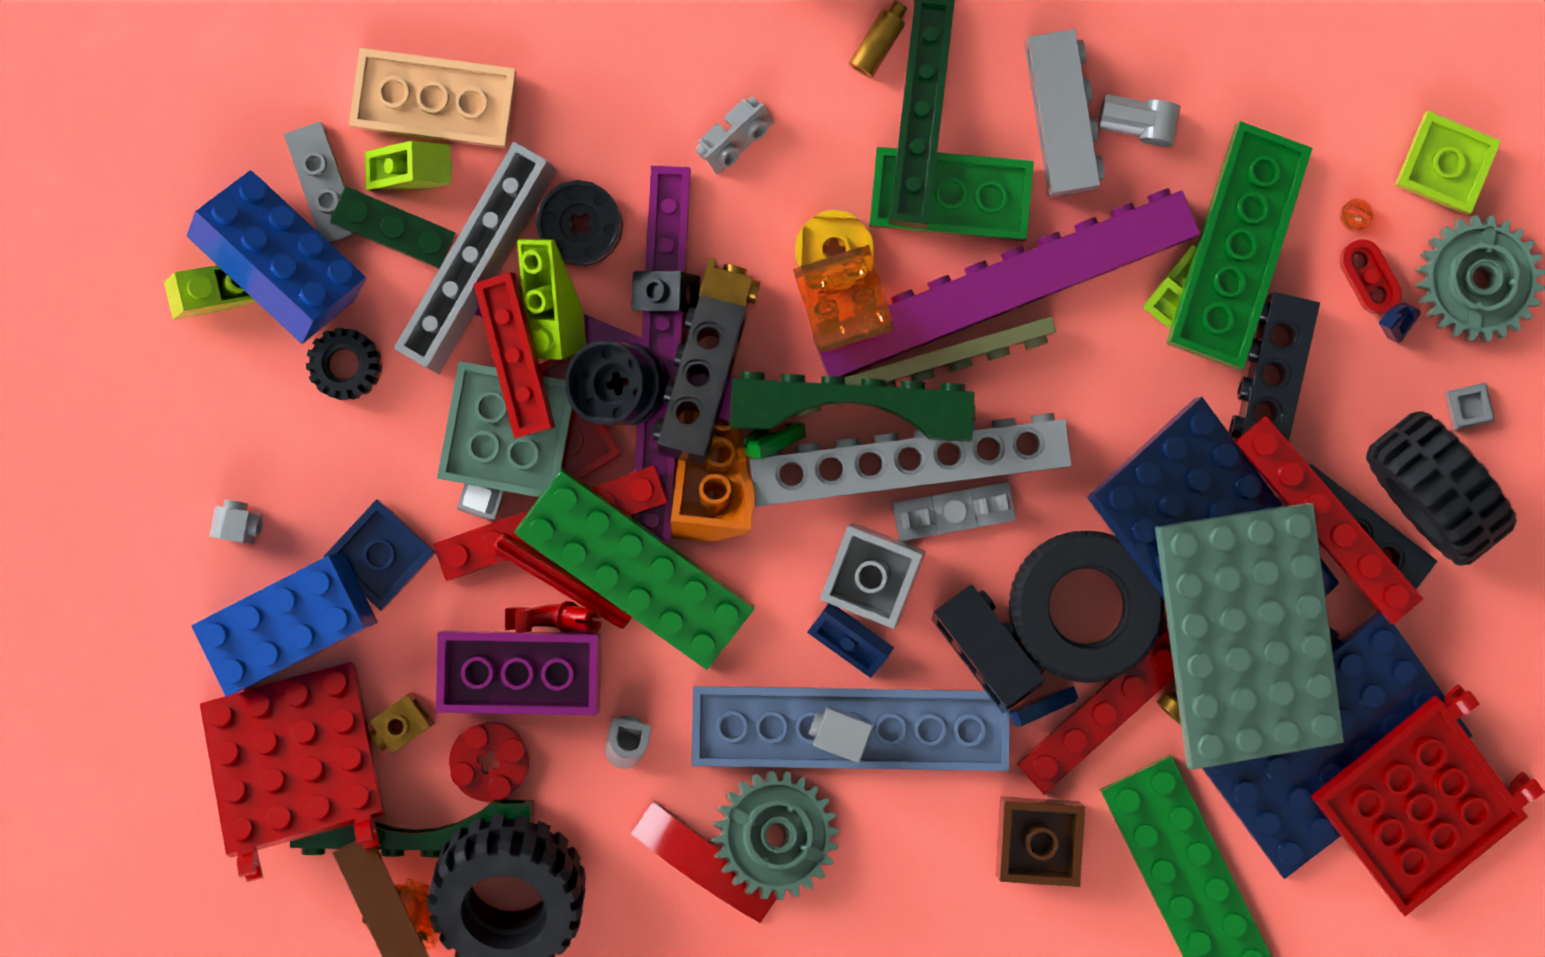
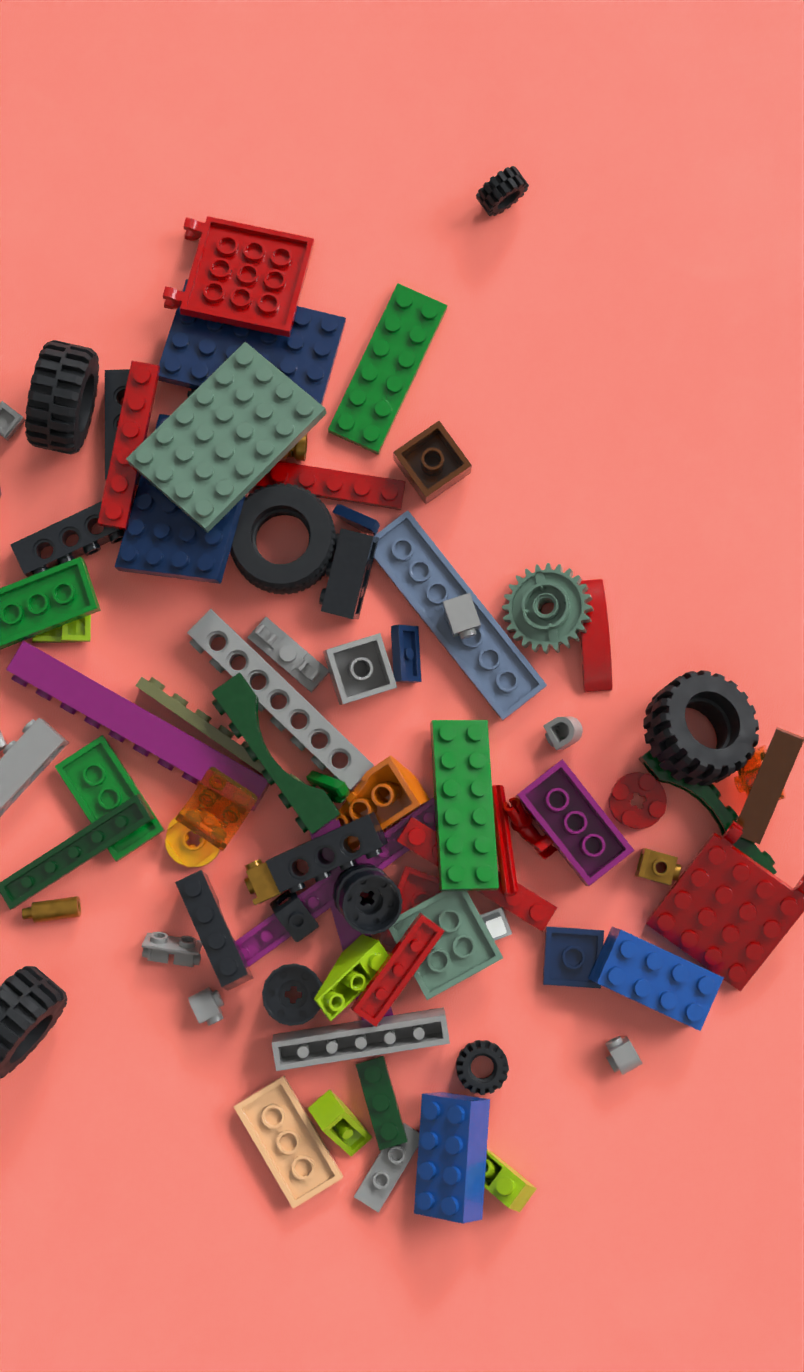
camera: 130 degrees left, 5 degrees down
(643, 123) = (207, 1006): none -> light grey plate
(718, 192) = (213, 930): none -> black arch

